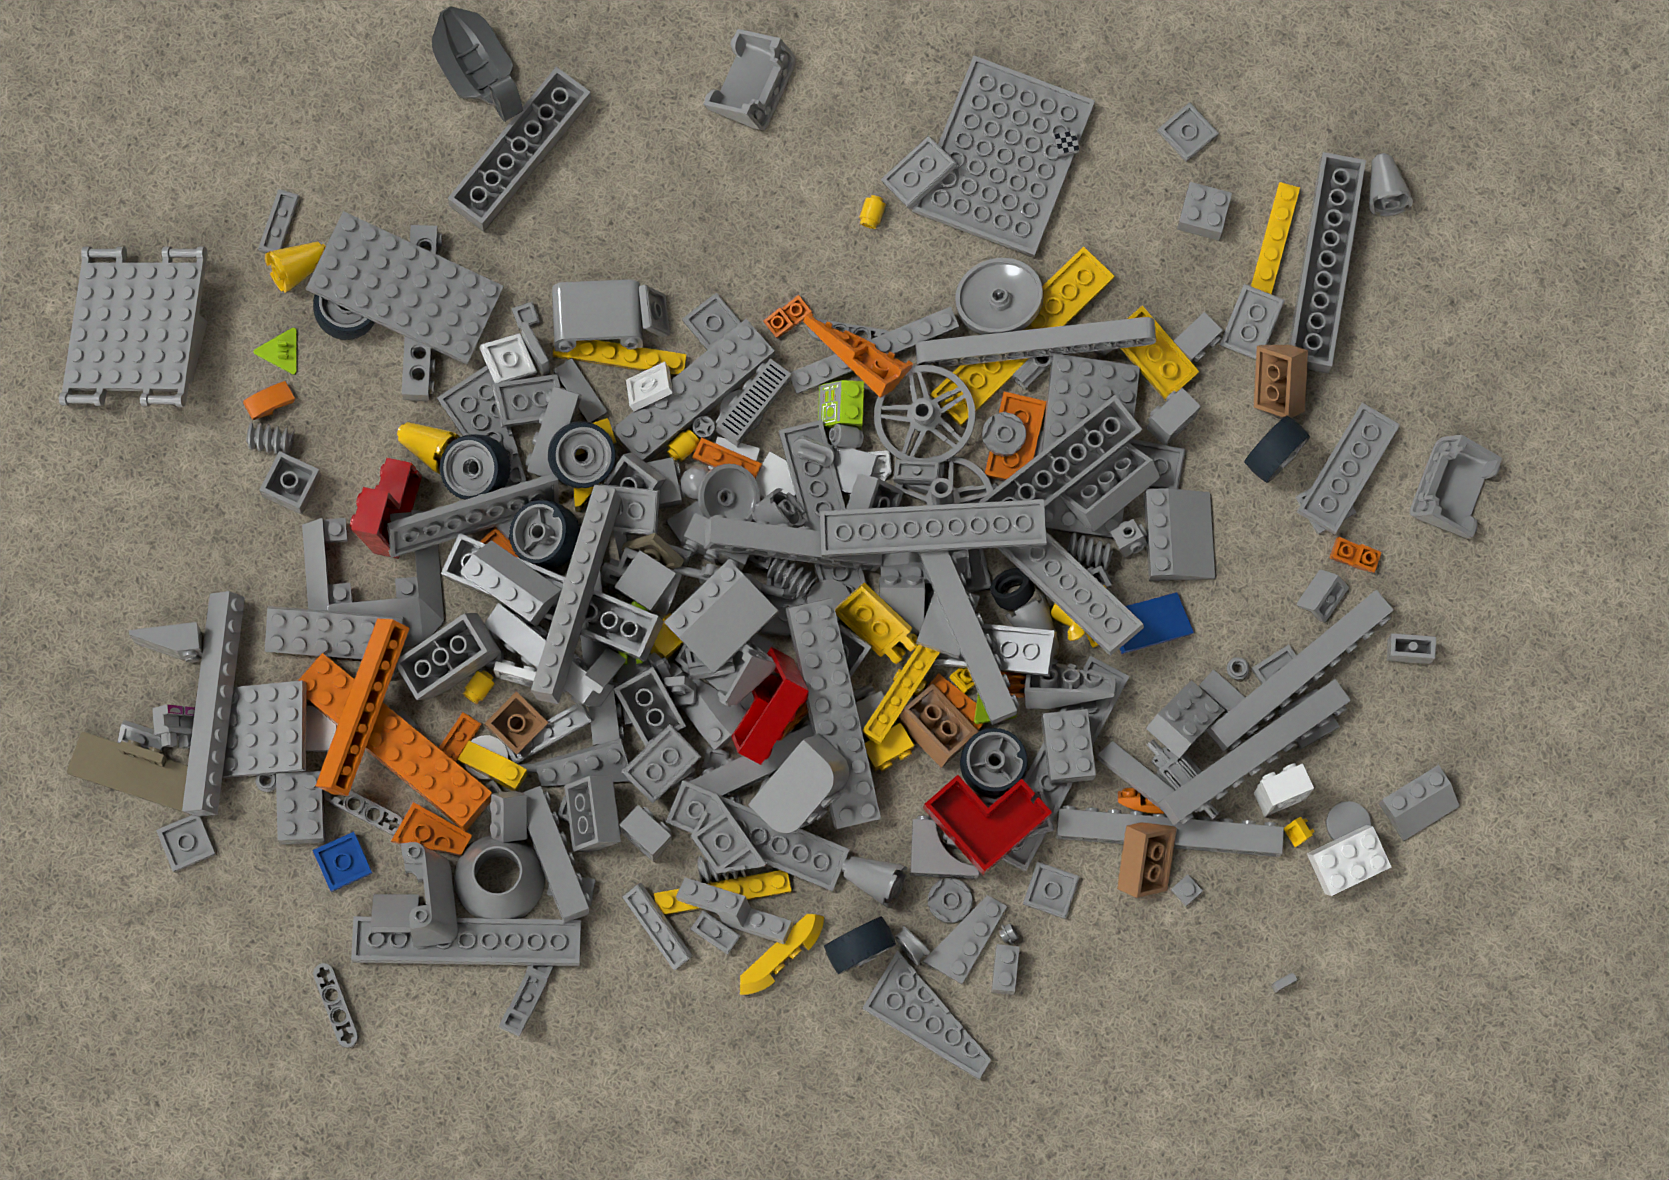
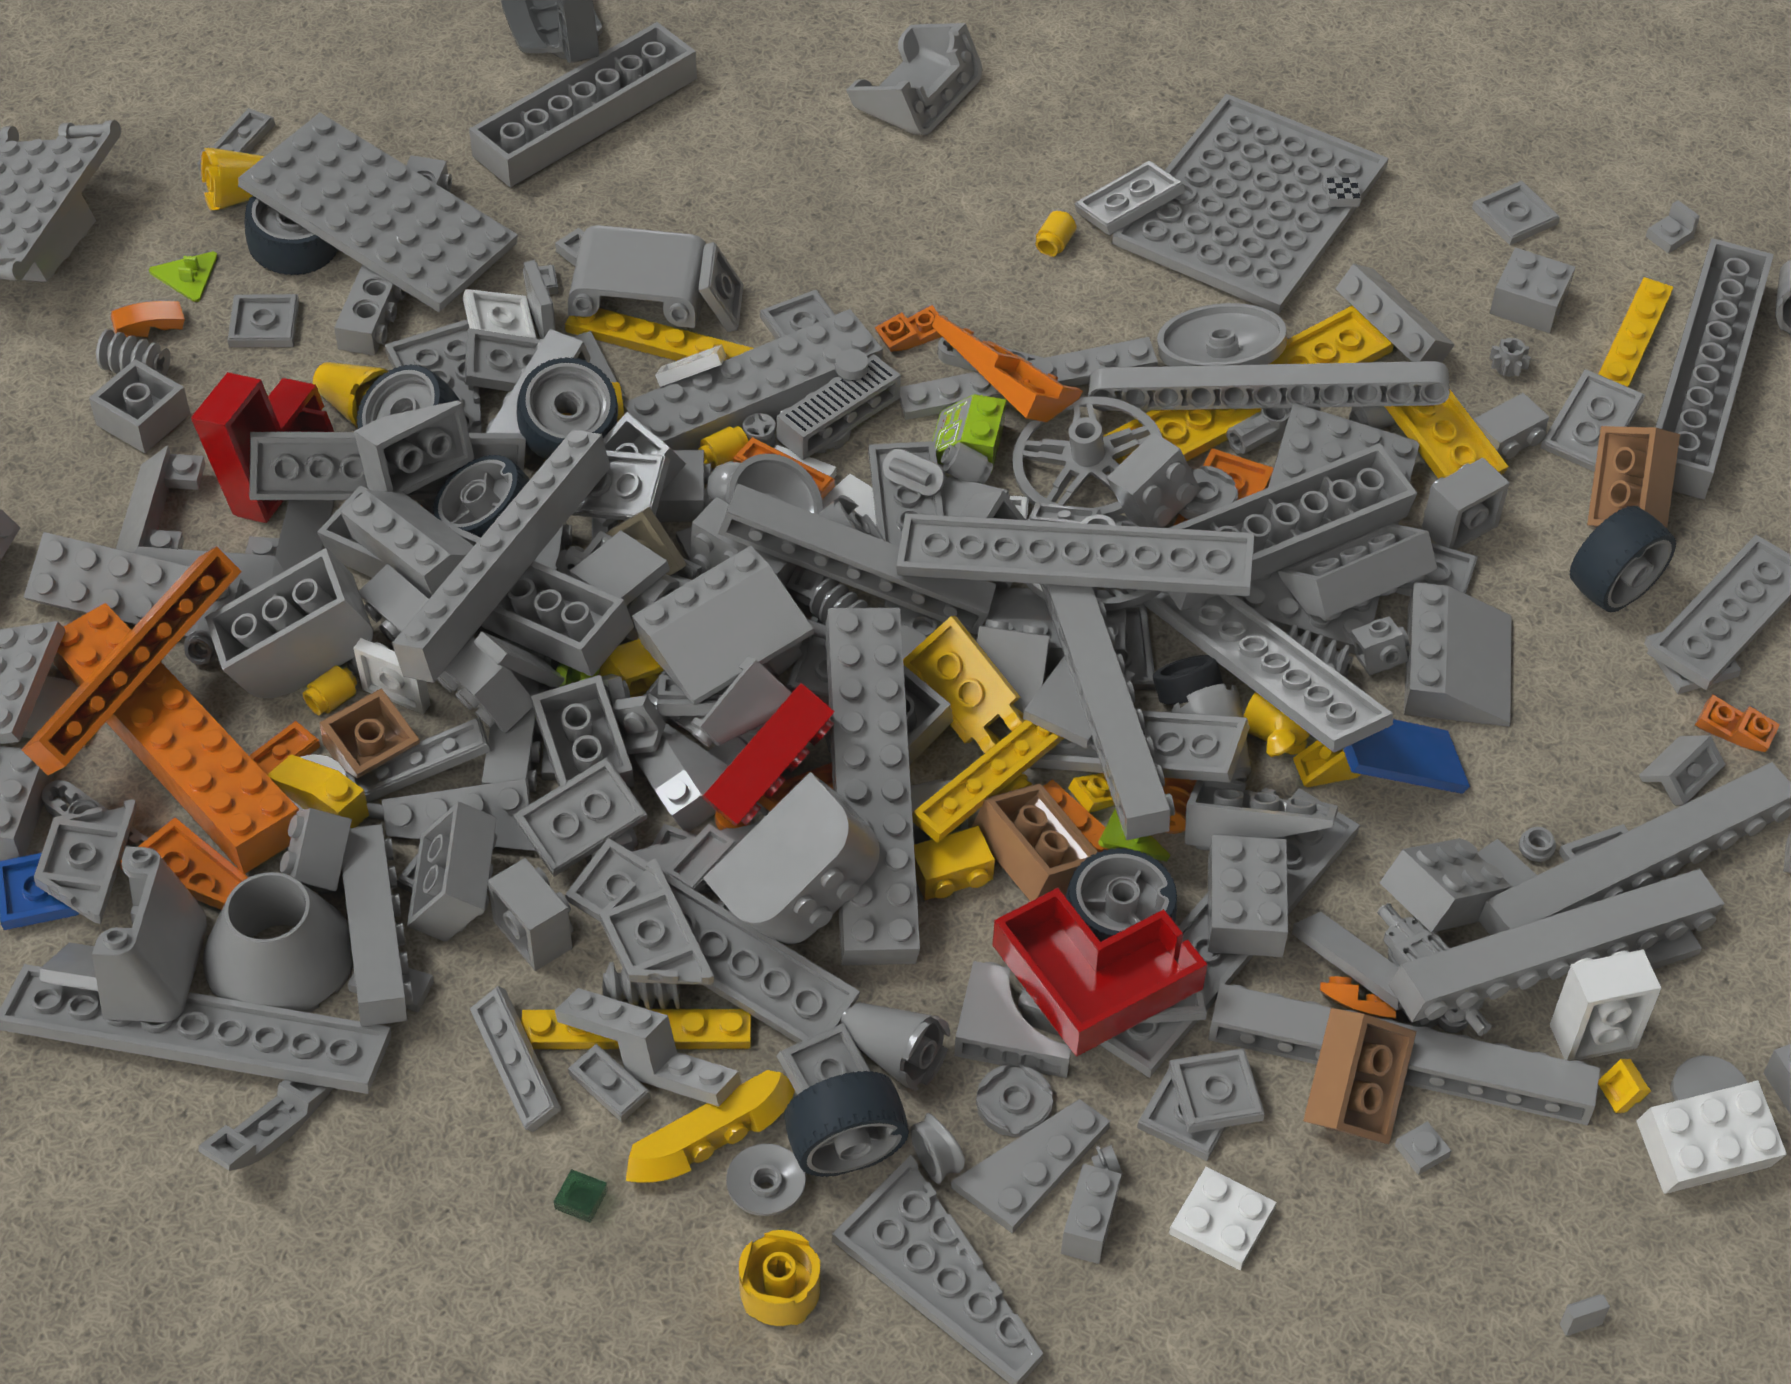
camera: 15 degrees right, 25 degrees down
(346, 385) = (263, 320): none -> light grey tile
(368, 840) = (84, 857): none -> light grey wing
(491, 511) = (414, 447): none -> light grey slope
(544, 282) = (569, 245): none -> light grey plate
(716, 1007) = (580, 1195): none -> clear green plate
(739, 779) = (701, 857): none -> light grey tile
(758, 373) = (851, 364): none -> light grey tile
(818, 968) = (760, 1165): none -> light grey dish
(841, 905) = (821, 1058): none -> light grey tile
(848, 1051) = (779, 1278): none -> yellow brick
(972, 445) = (1153, 483): none -> light grey brick
(1065, 877) = (1216, 1090): none -> light grey tile
(1078, 955) = (1222, 1218): none -> white plate
(1113, 254) = (1394, 315): none -> light grey brick
(1188, 275) = (1510, 357): none -> light grey gear
(1297, 131) = (1675, 228): none -> light grey bracket

